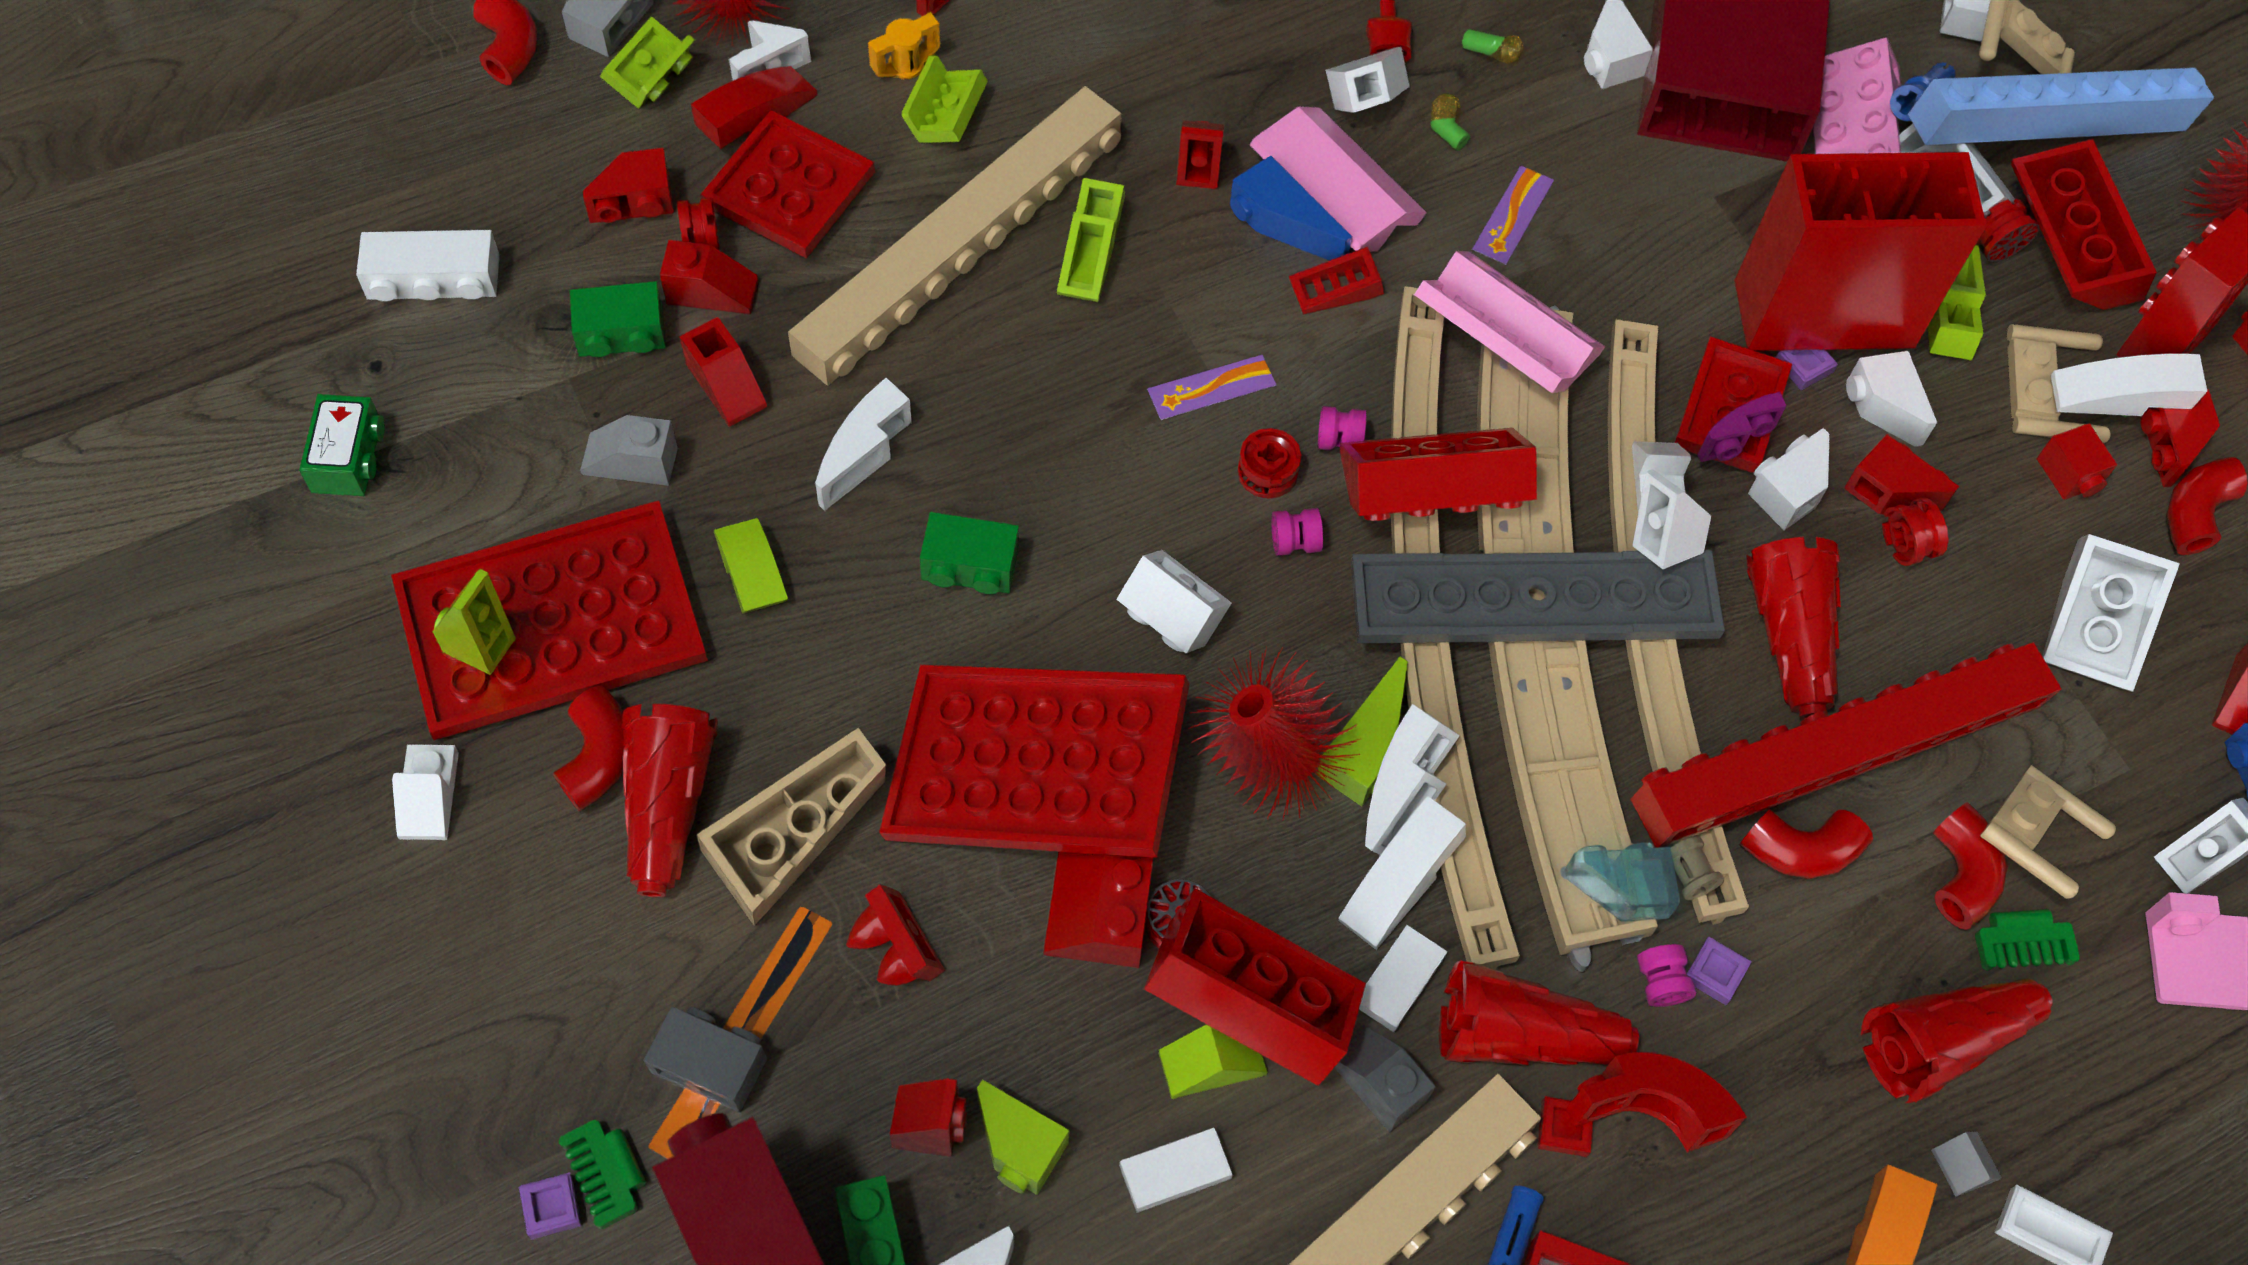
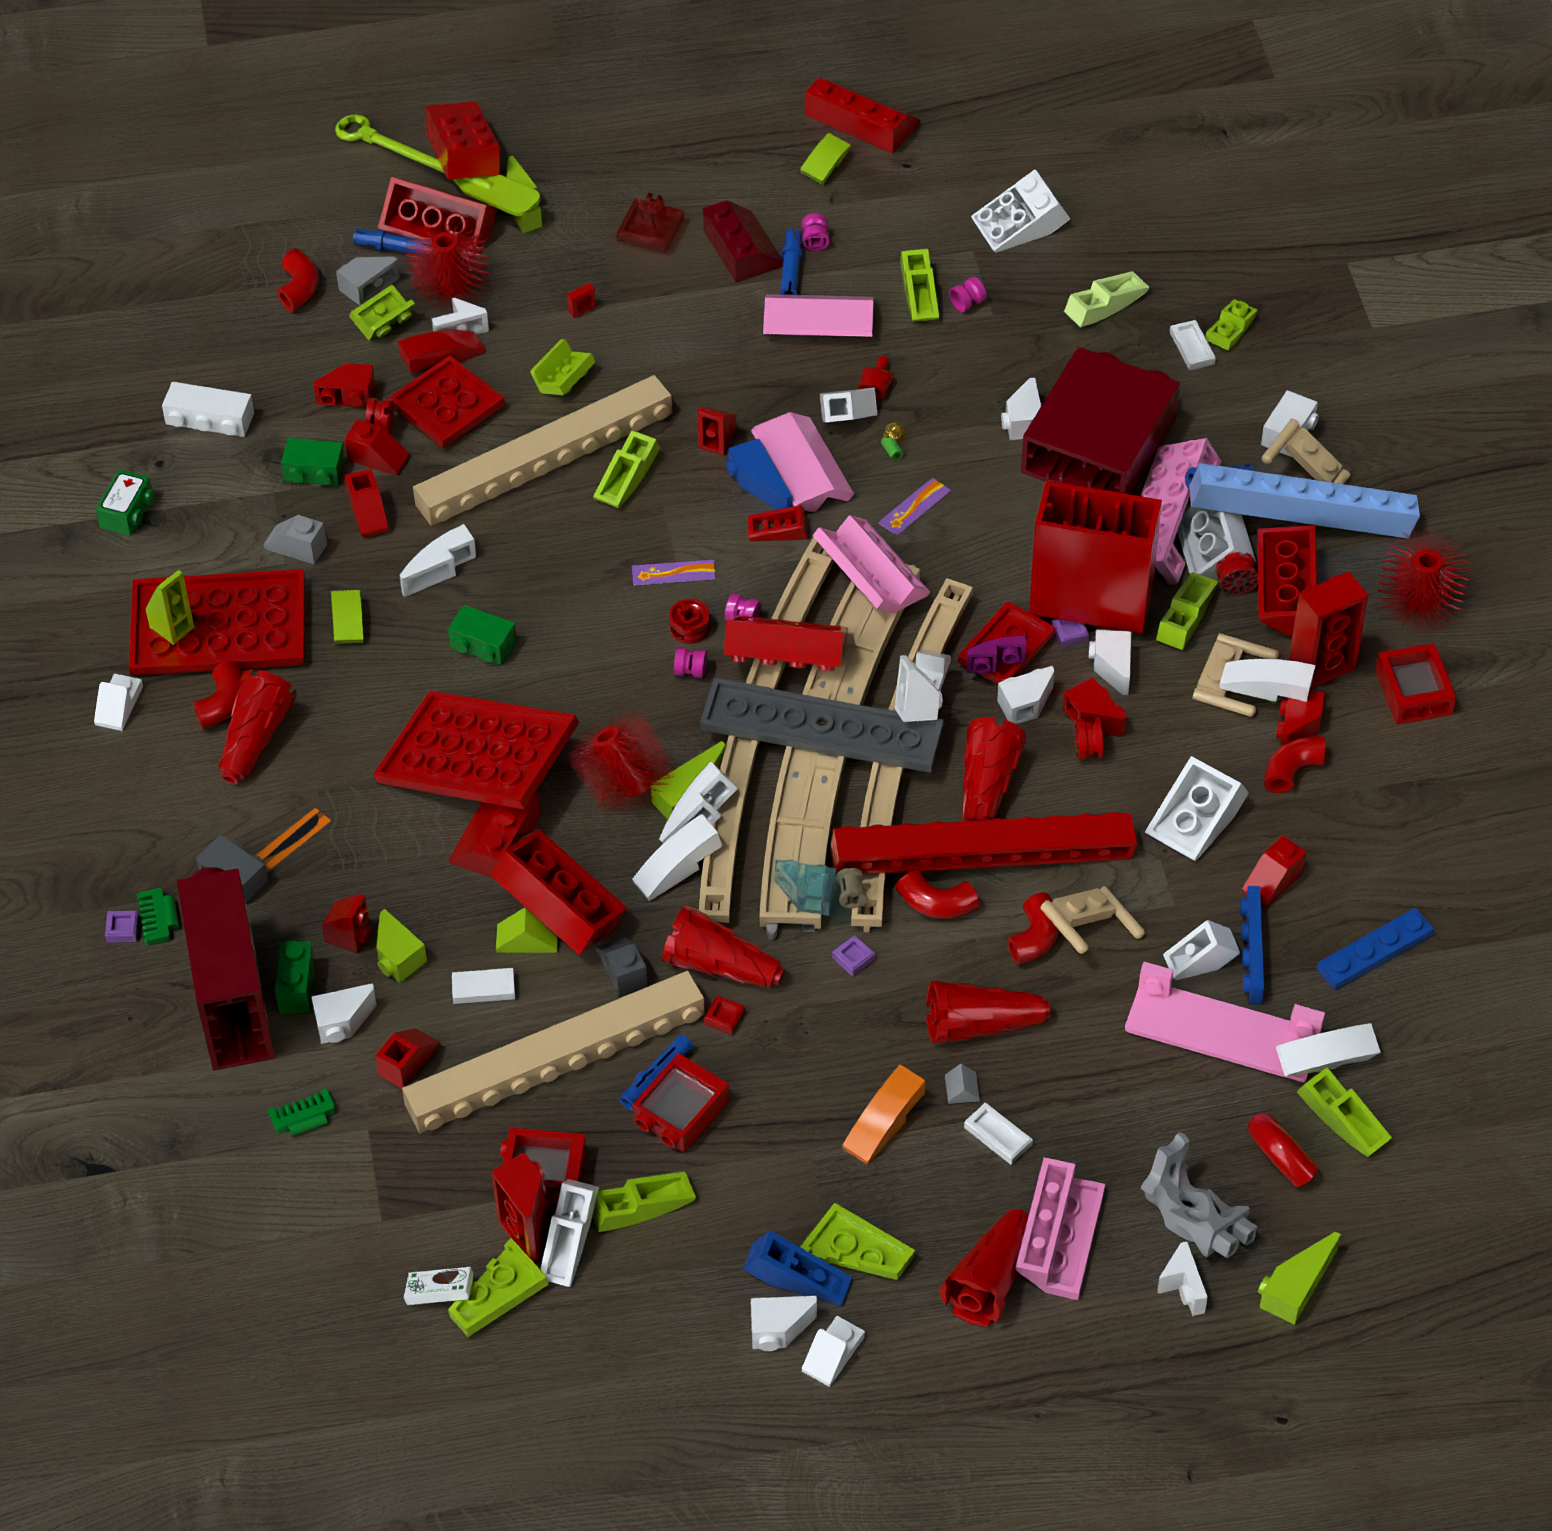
camera: 20 degrees right, 10 degrees down
(786, 826) = (323, 756): tan wedge -> none
(892, 920) = (365, 823): red tile -> none
(903, 42) = (548, 327): light orange piece -> none
(1173, 602) = (595, 685): white brick -> none
(1401, 978) = (654, 918): white tile -> none
(1498, 47) = (943, 399): arm -> none
(1665, 1088) = (782, 1001): red arch -> none
(1666, 975) = (817, 948): dark pink wheel -> none
(2024, 929) = (1059, 975): green piece -> none
(2077, 462) = (1220, 721): red brick -> none

